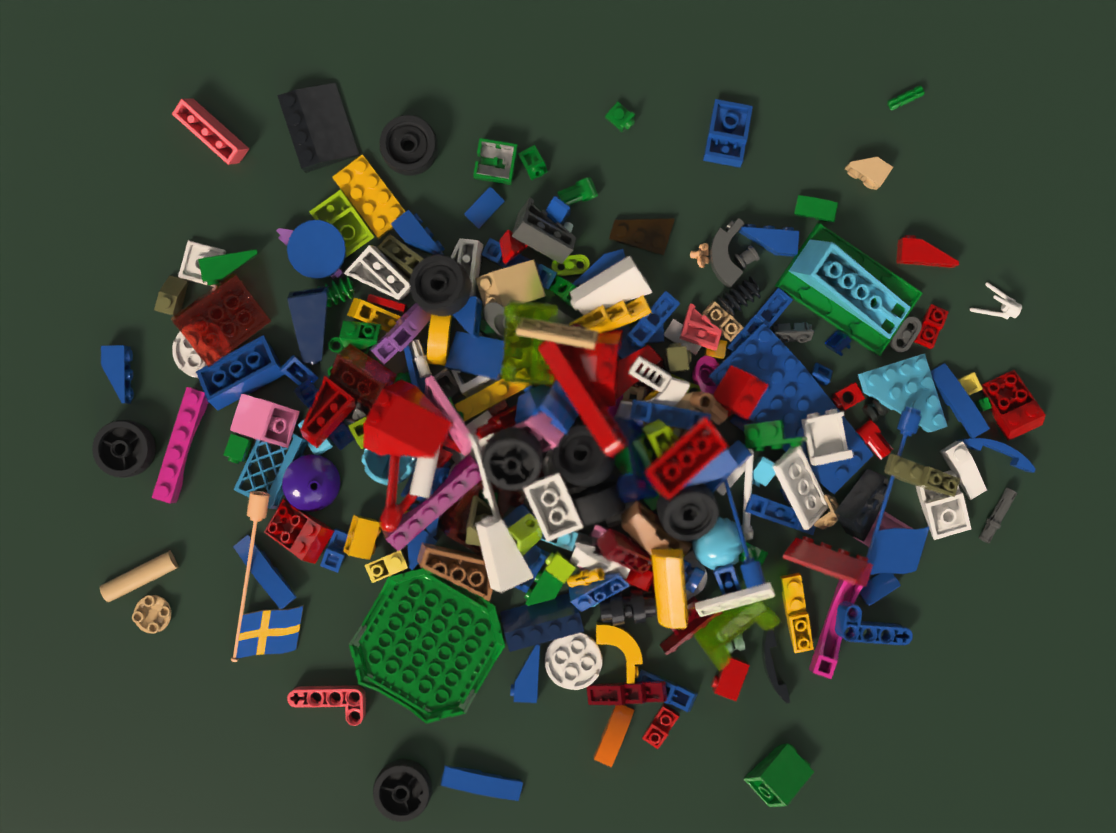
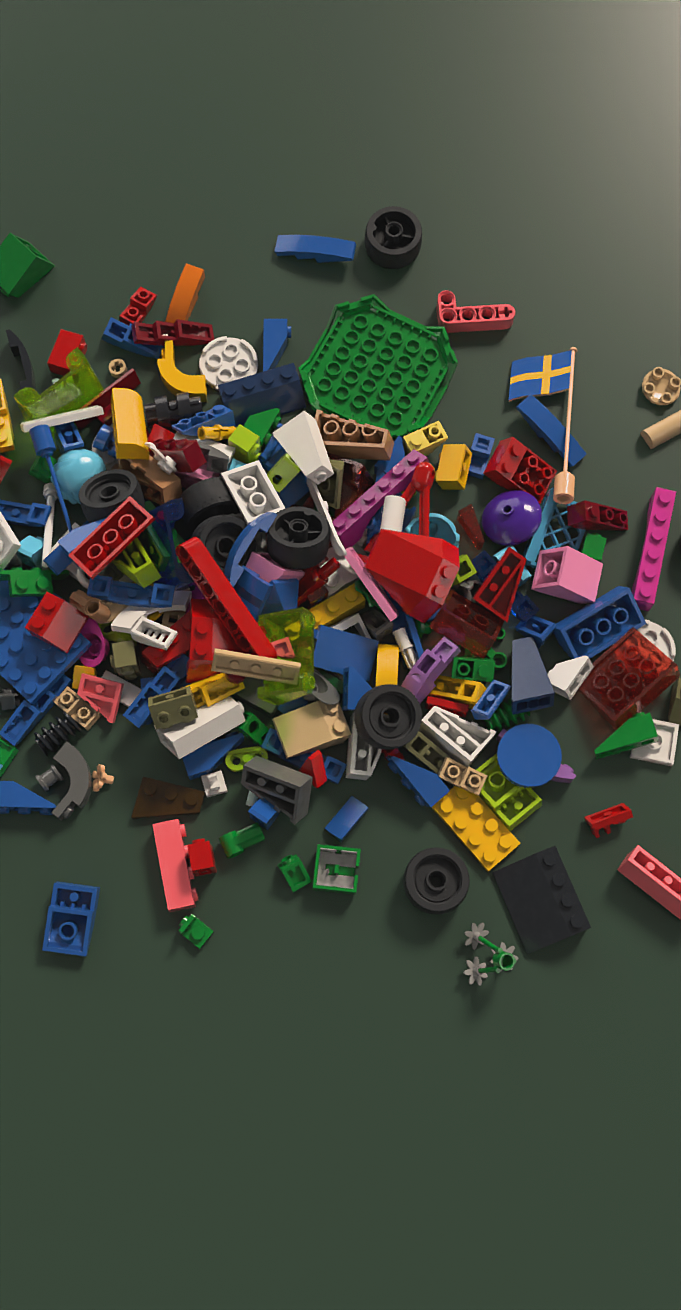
camera: 170 degrees right, 15 degrees down
(229, 478) = (595, 516): none -> dark red slope
(251, 195) = (603, 819): none -> red plate
(273, 323) = (569, 675): none -> white slope
(346, 301) = (490, 700): none -> blue slope
(350, 478) = (469, 522): none -> clear red slope
(357, 70) = (501, 959): none -> plant
(378, 236) = (462, 776): none -> tan slope
(531, 354) = (284, 648): none -> coral tile
(564, 452) = (262, 524): none -> blue slope
(600, 245) = (214, 784): none -> white tile
(612, 175) = (201, 857): none -> red brick
(634, 300) = (173, 708): none -> olive brick
(635, 539) = (165, 463): none -> white plate
(638, 174) = (174, 865): none -> coral brick
(686, 663) = (112, 366): none -> tan bush

